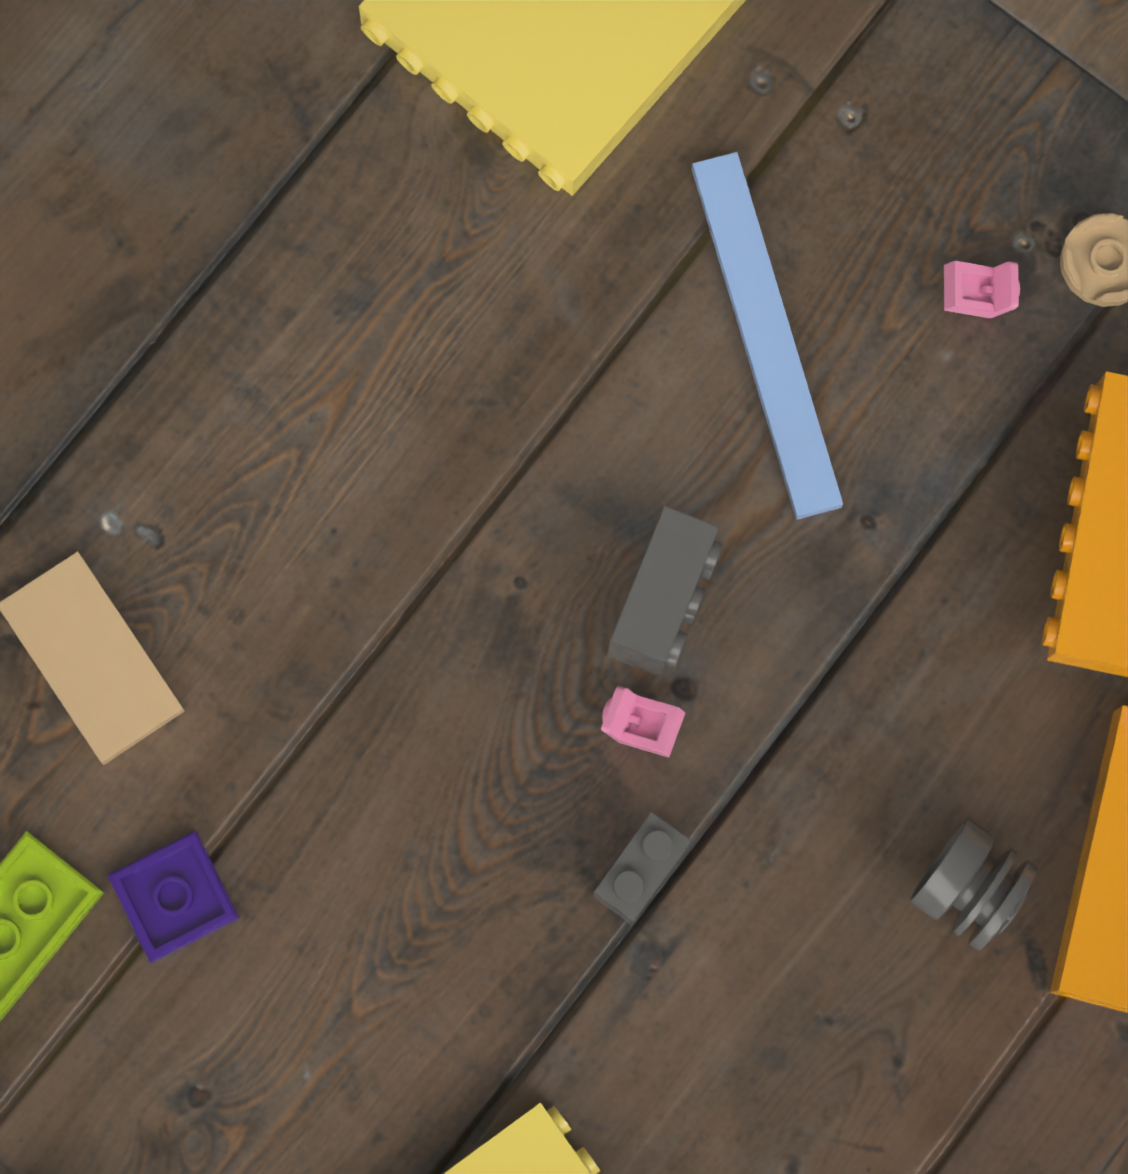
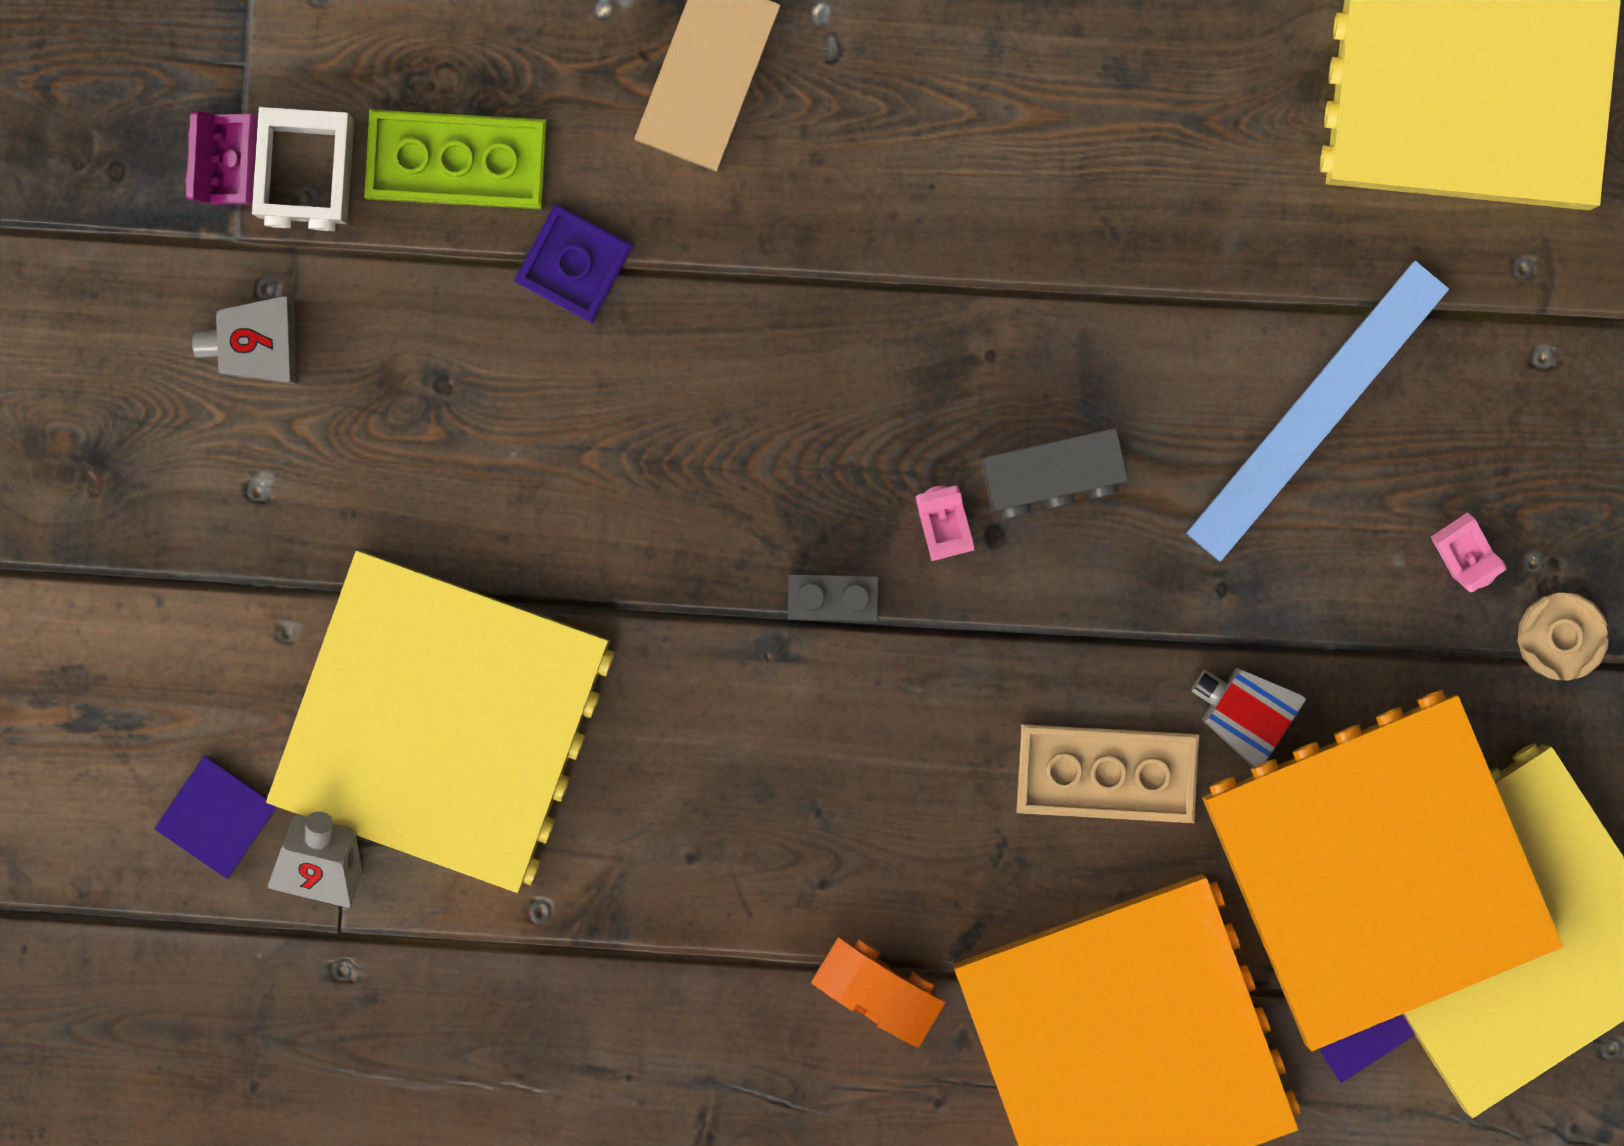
camera: 60 degrees right, 10 degrees up
(966, 733) = (1107, 773): none -> tan tile
(974, 885) = (990, 854): dark grey wheel -> none
(995, 571) = (1247, 712): none -> torso
(1033, 1076) = (873, 988): none -> orange brick

